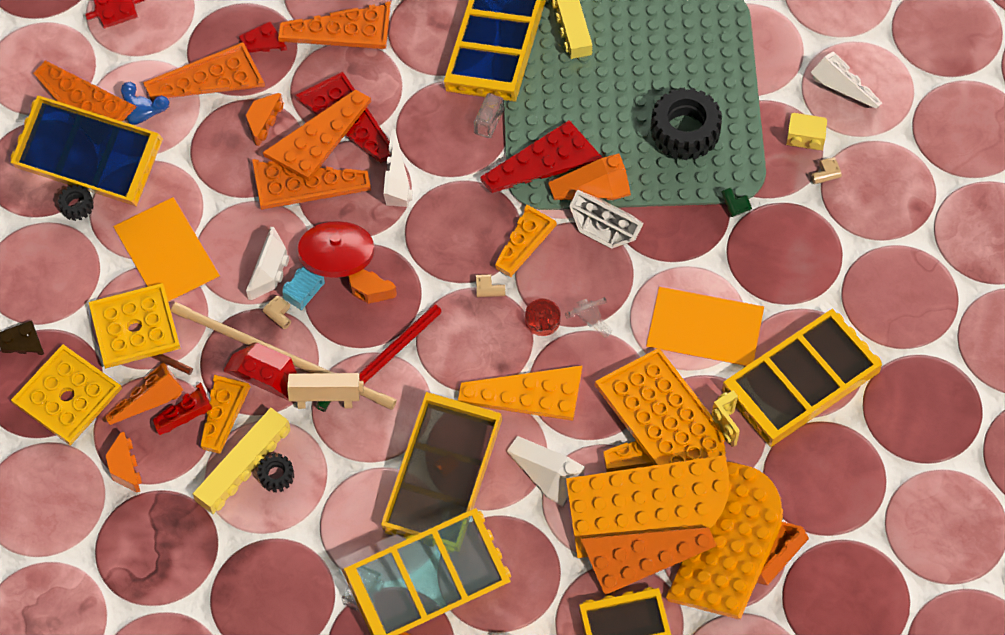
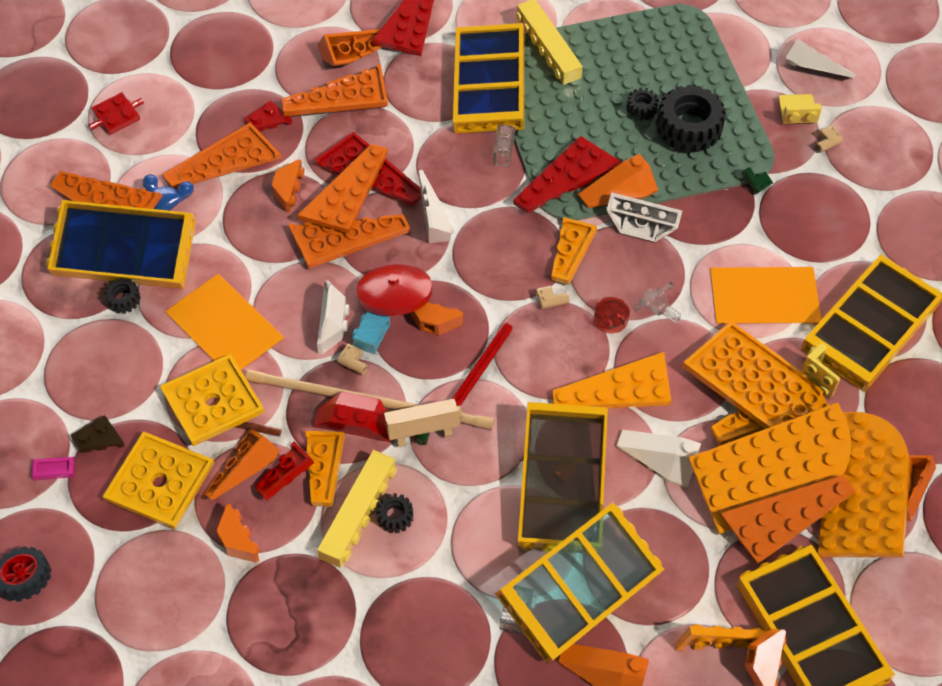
camera: 15 degrees left, 5 degrees down
(643, 87) = (642, 111): none -> black tyre

